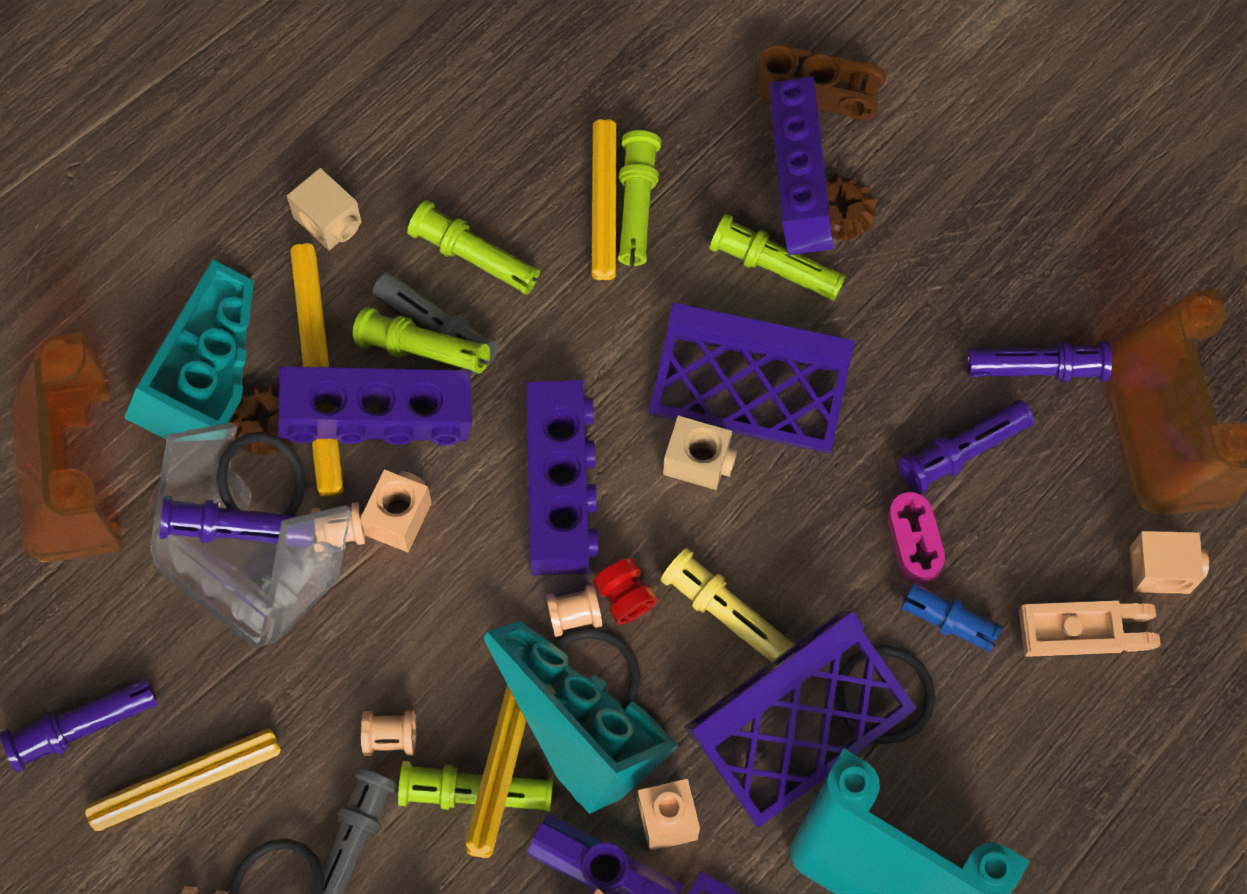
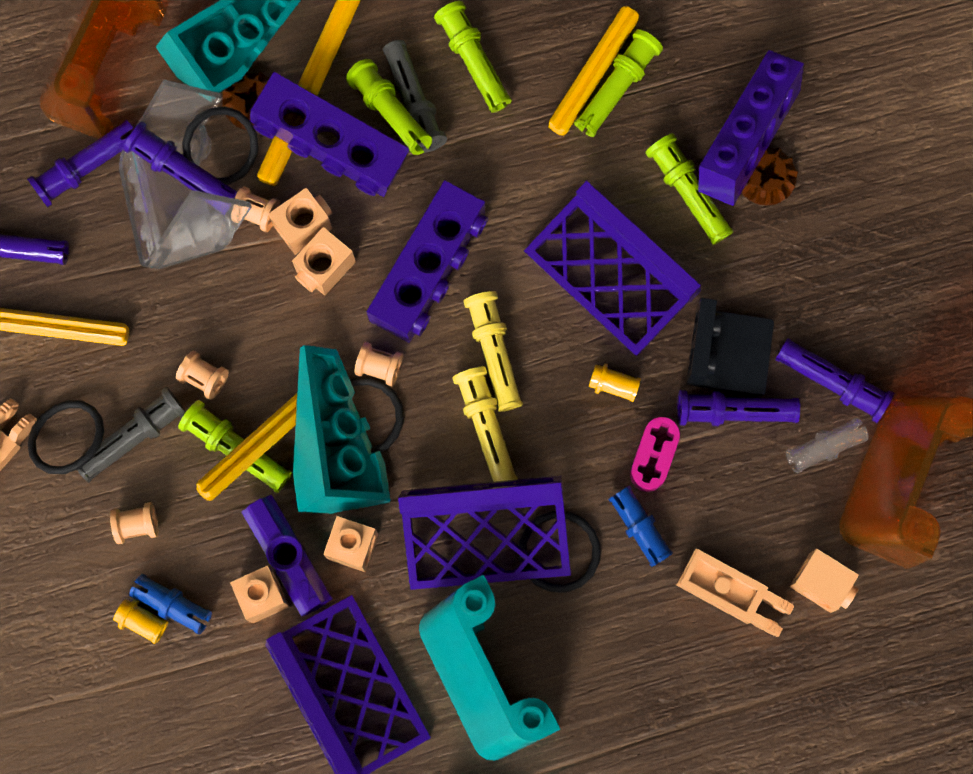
camera: 35 degrees right, 10 degrees up
(104, 602) = (67, 173): none -> dark purple pin
(442, 520) = (323, 246): none -> light nougat brick
(625, 591) = (422, 371): red wheel -> none
(669, 512) = (490, 333): none -> light yellow pin
(694, 435) = (535, 286): tan brick -> none
(828, 489) = (614, 382): none -> yellow pin
(841, 77) = (831, 86): reddish brown piece -> none
(919, 393) = (729, 351): none -> black bracket
(1076, 430) = (827, 445): none -> clear pin

